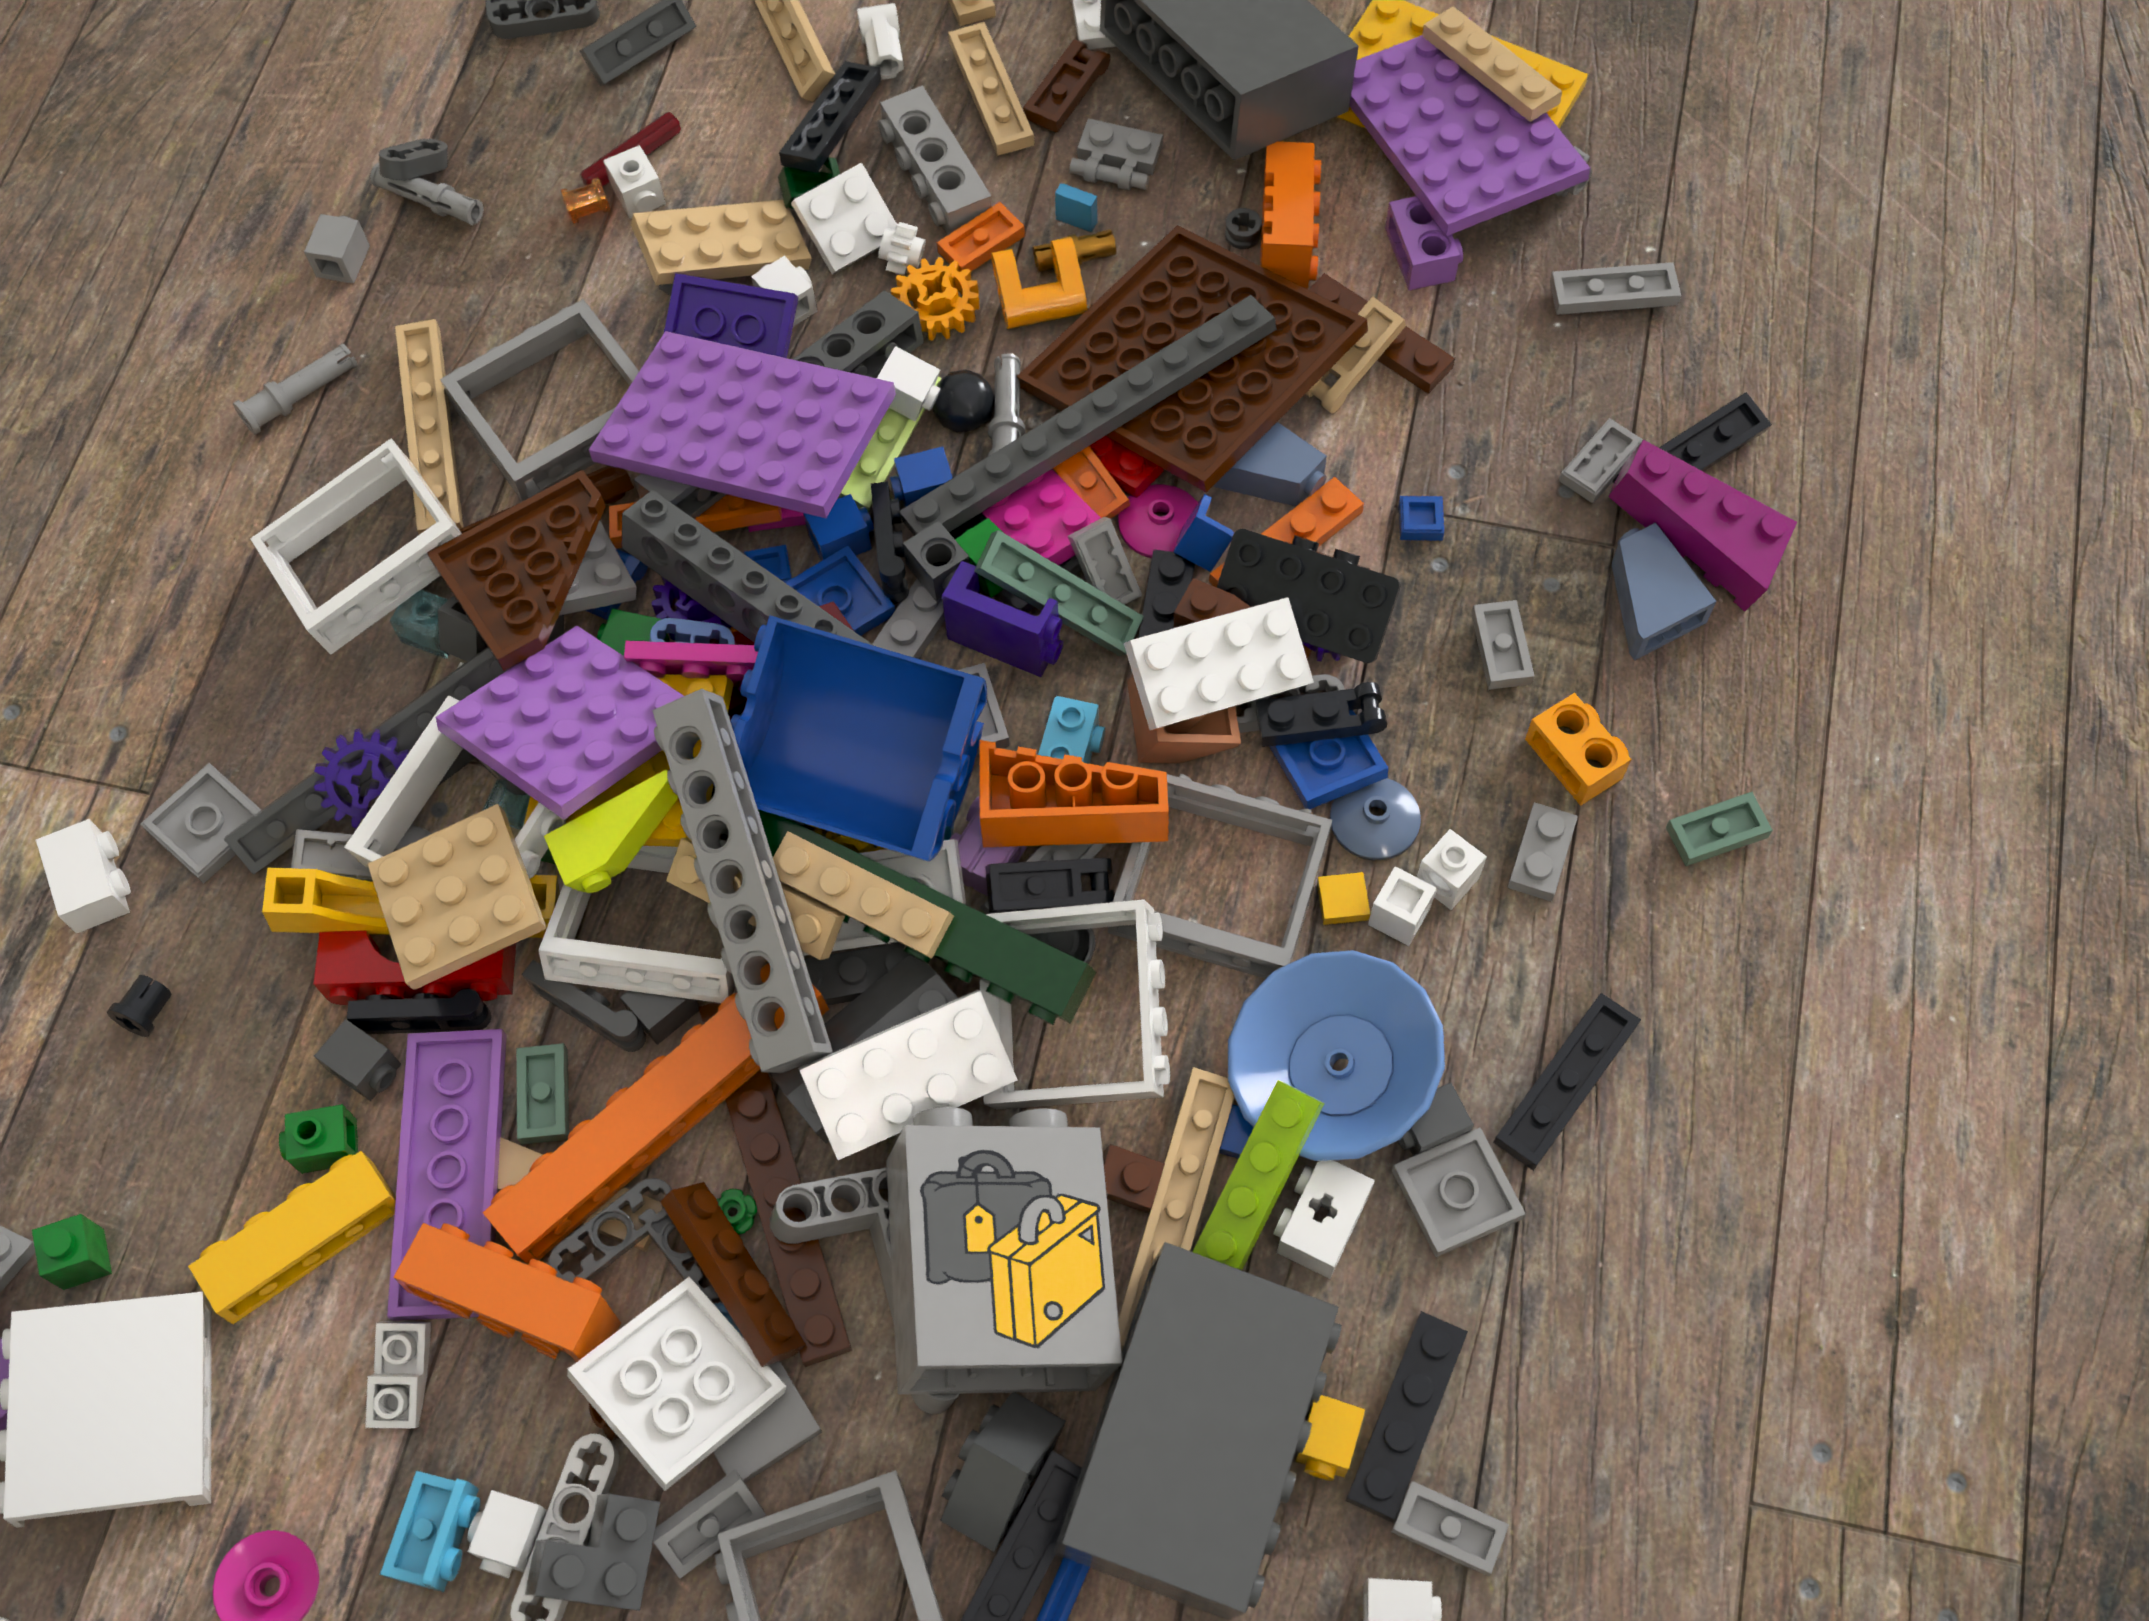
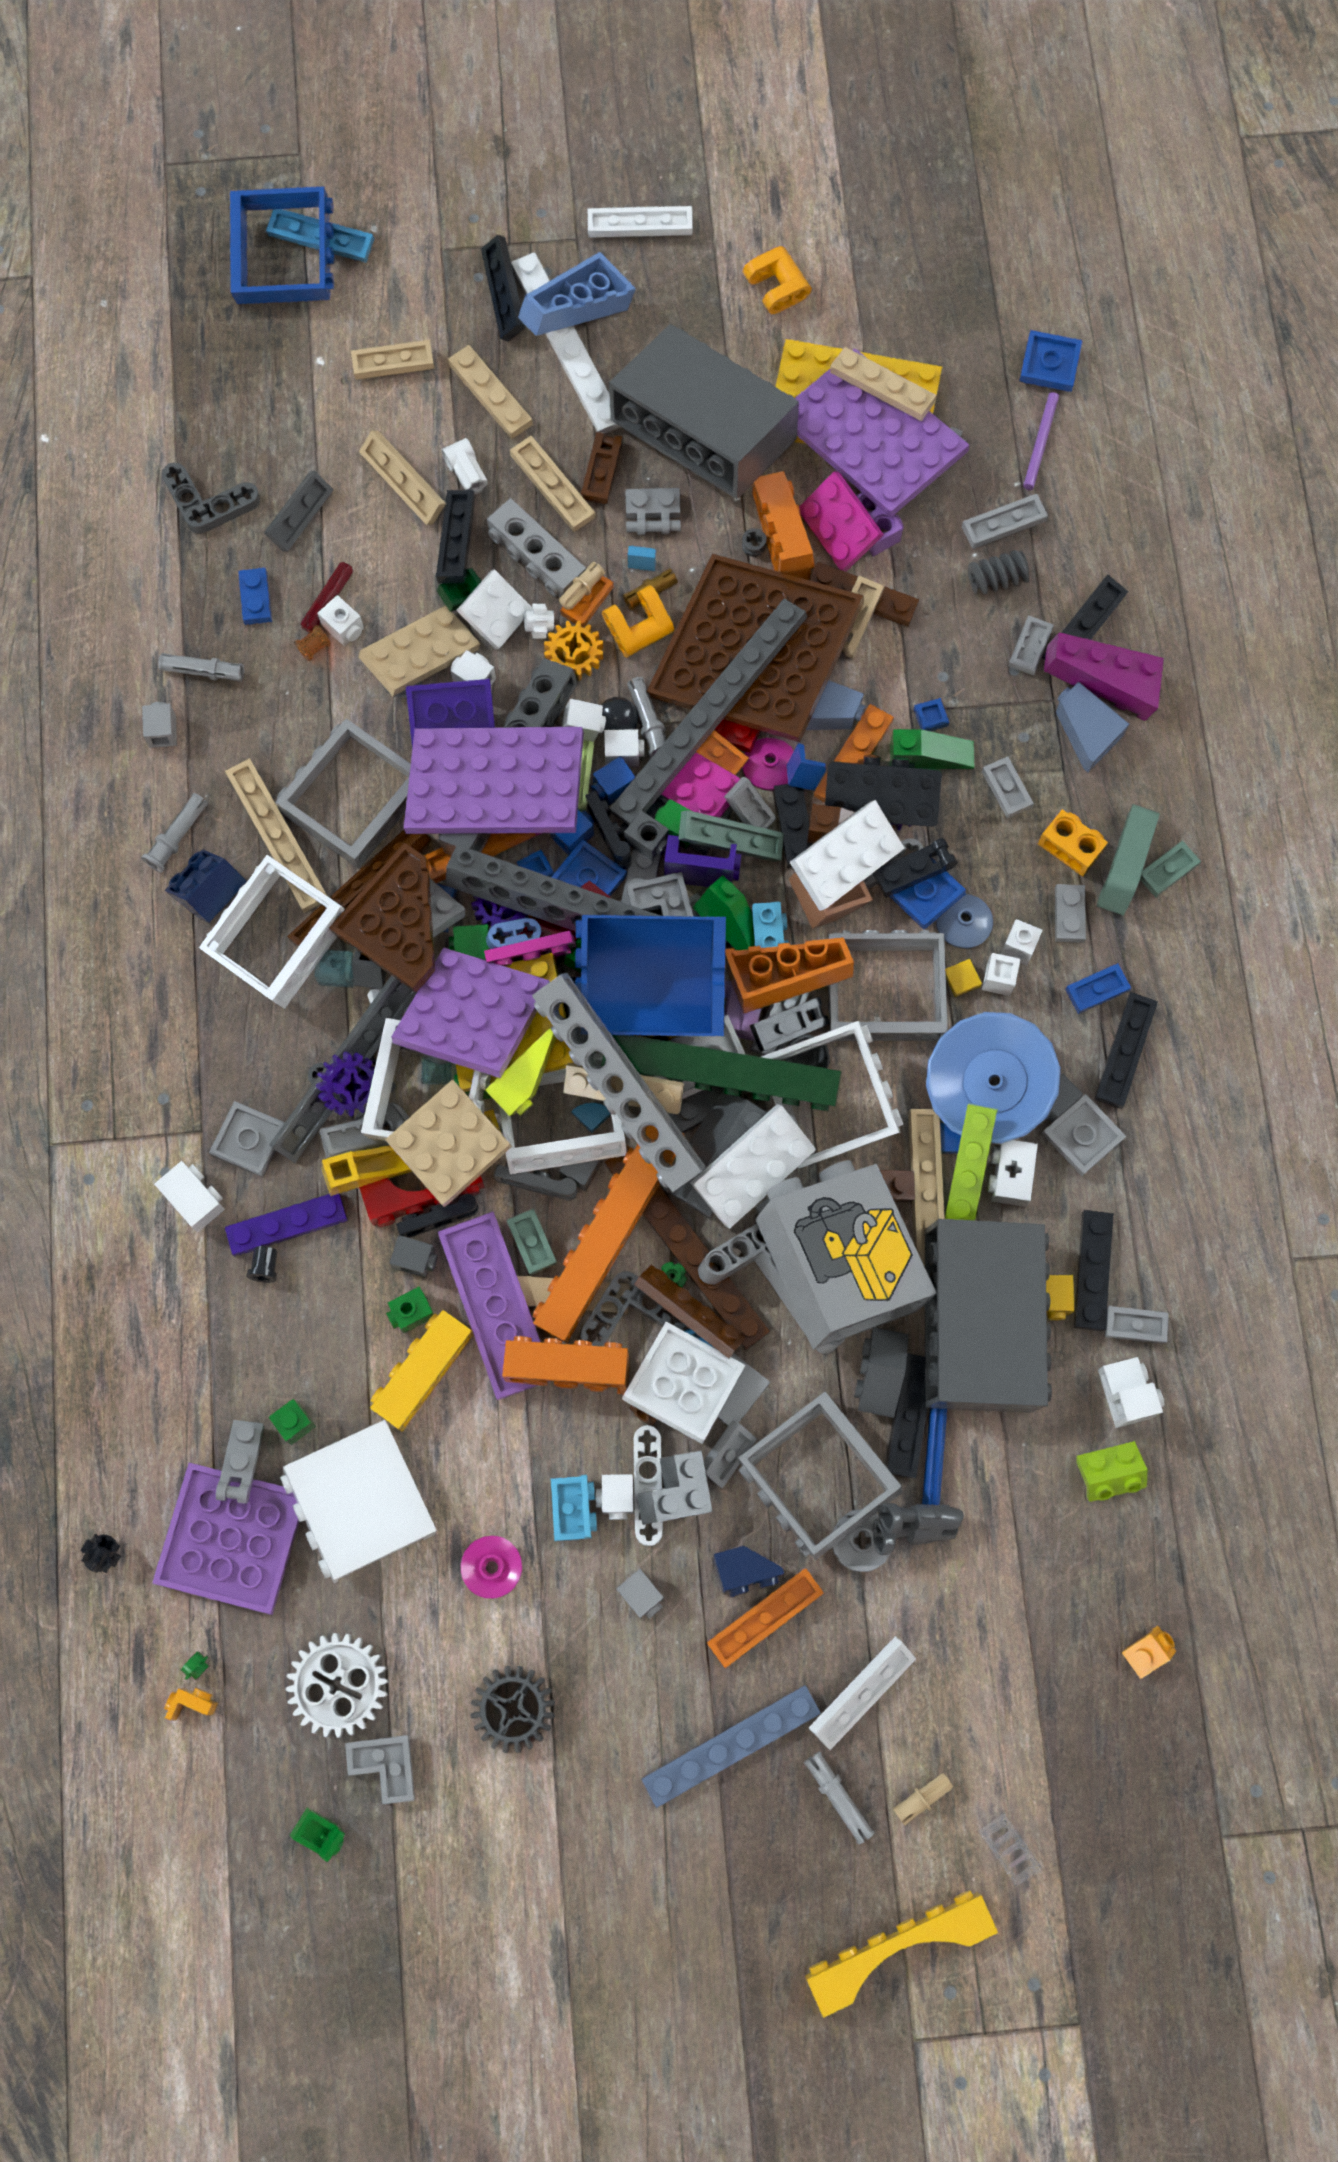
camera: 20 degrees left, 10 degrees up
(204, 957) = (286, 1223): none -> dark purple plate
(300, 463) = (205, 885): none -> dark blue slope
(399, 1374) = (514, 1429): white slope -> none
(413, 159) = (184, 645): dark grey beam -> none
(537, 127) = (255, 596): none -> blue plate
(703, 935) = (591, 1115): none -> dark azure tile
(861, 895) = (690, 1068): tan plate -> none
(927, 640) = (661, 893): none -> light grey plate
(959, 435) = (623, 744): none -> white brick
(976, 216) = (582, 586): none -> tan axle
(1016, 696) = (725, 900): none -> green slope
(1373, 227) = (840, 521): none -> dark pink plate
(1415, 563) = (932, 749): none -> green slope
(1551, 974) = (1098, 988): none -> blue plate
(1584, 349) = (998, 570): none -> dark grey piece
(1655, 796) = (1128, 860): none -> sand green beam
(1702, 202) = (1041, 440): none -> medium lavender bar
(1748, 103) = (1050, 360): none -> blue plate

